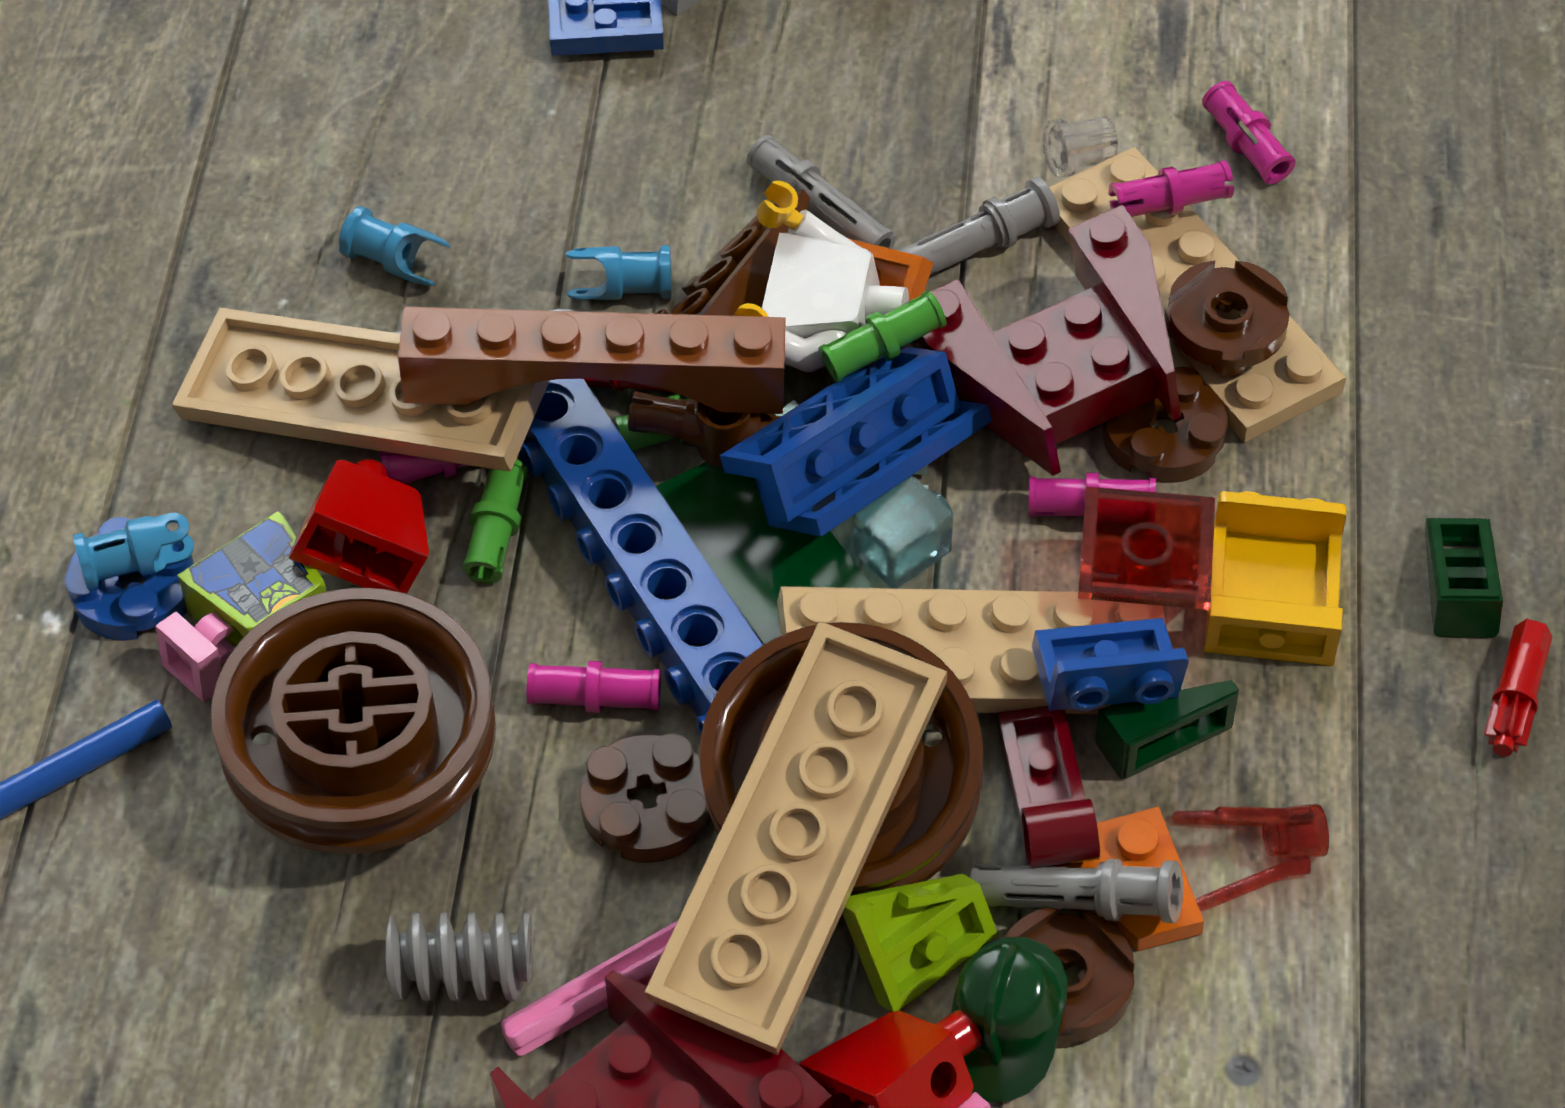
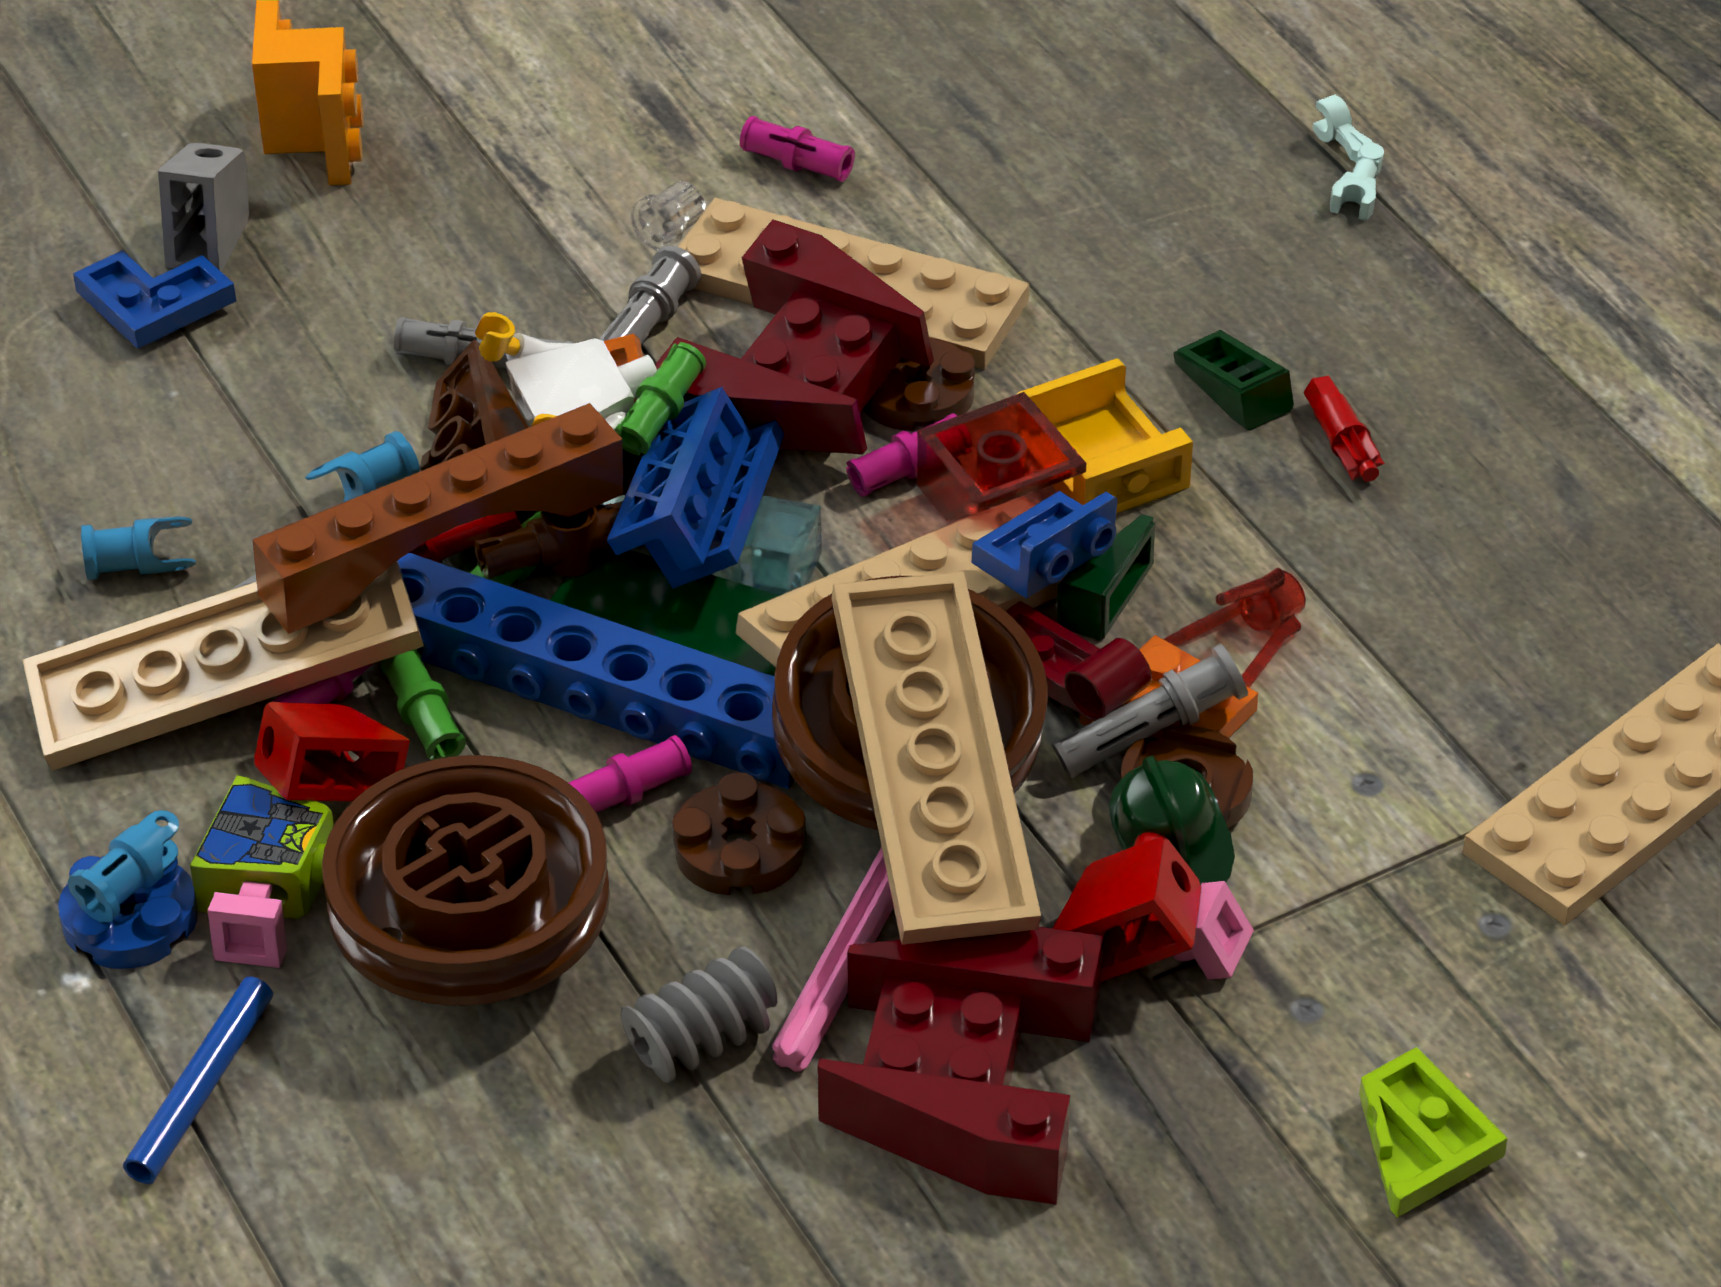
camera: 35 degrees left, 10 degrees down
(917, 934) = (1059, 809): lime wing -> none
(1173, 189) = (785, 204): dark pink pin -> none
(1222, 342) = (940, 267): reddish brown plate -> none

